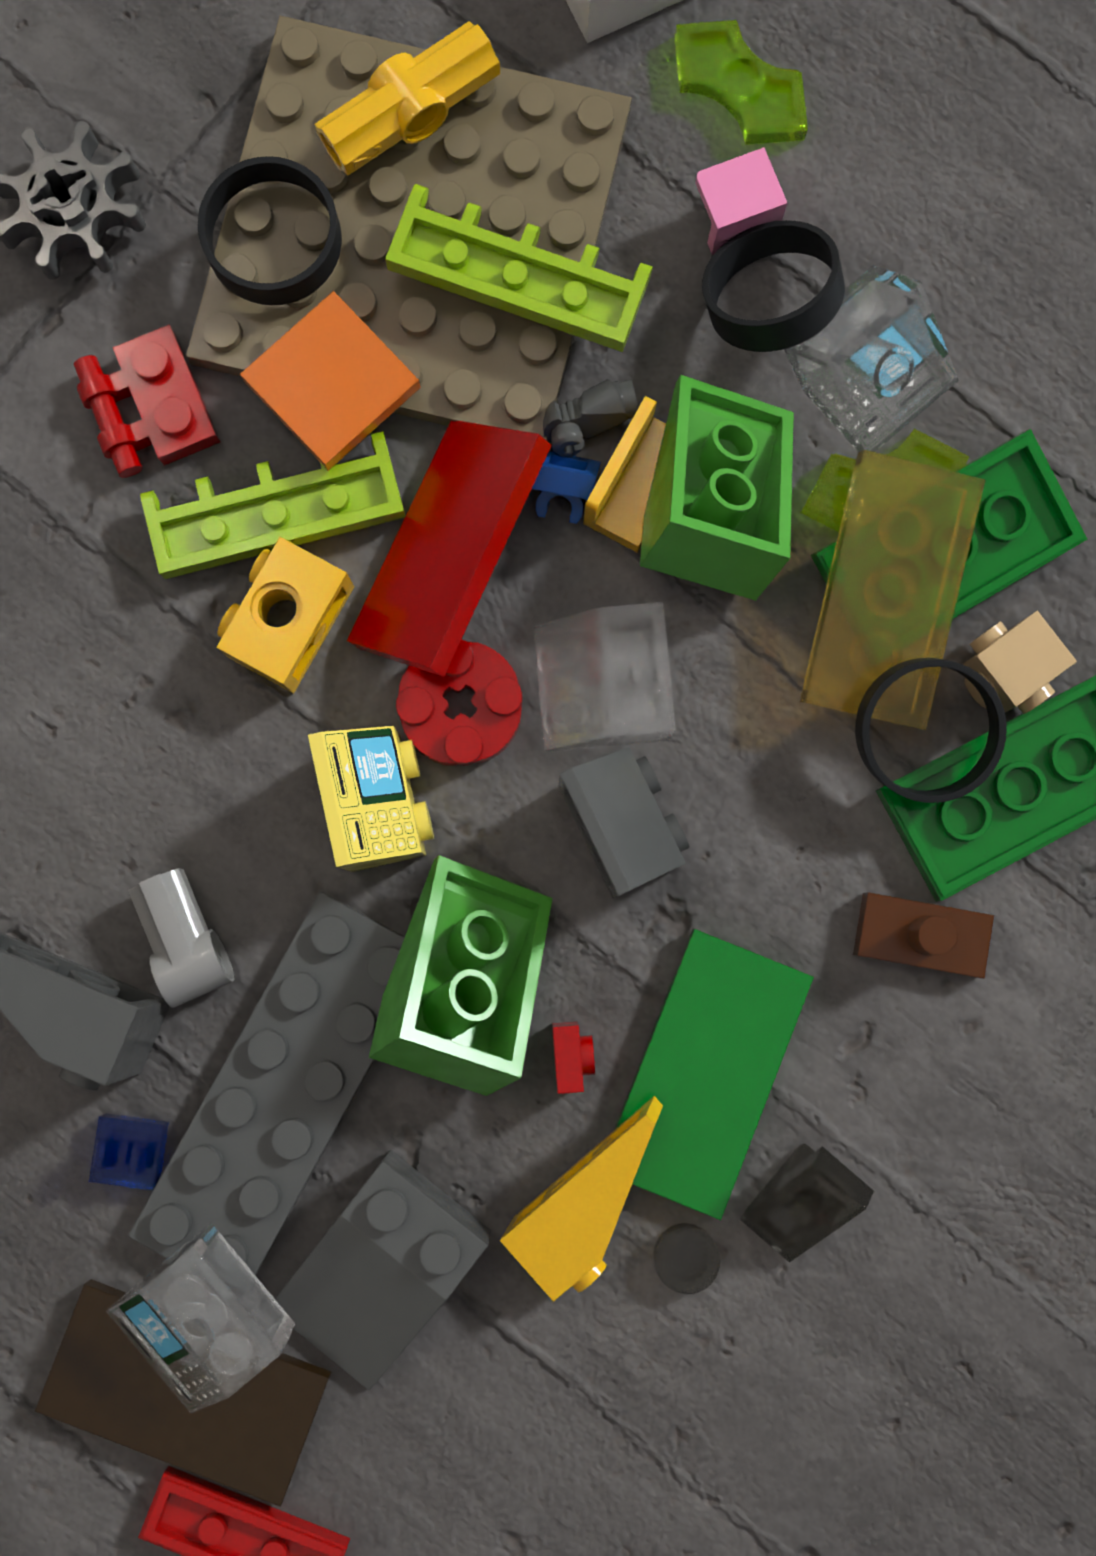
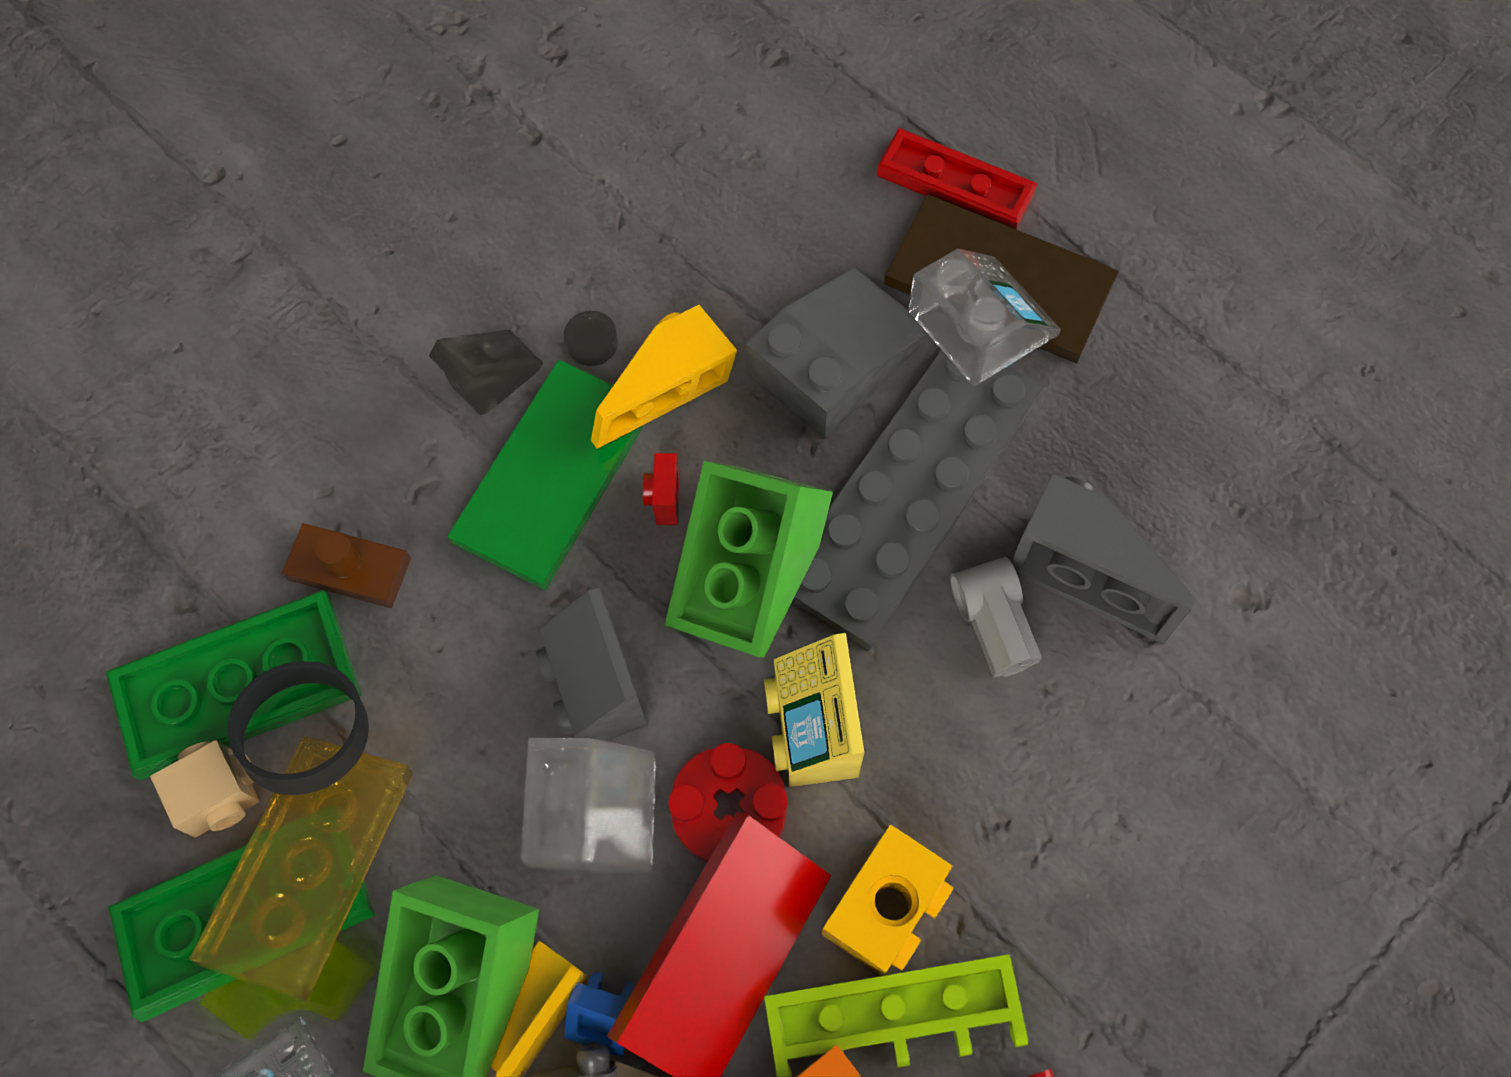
camera: 170 degrees left, 15 degrees down
(128, 1151) = (1043, 451): clear blue tile -> none

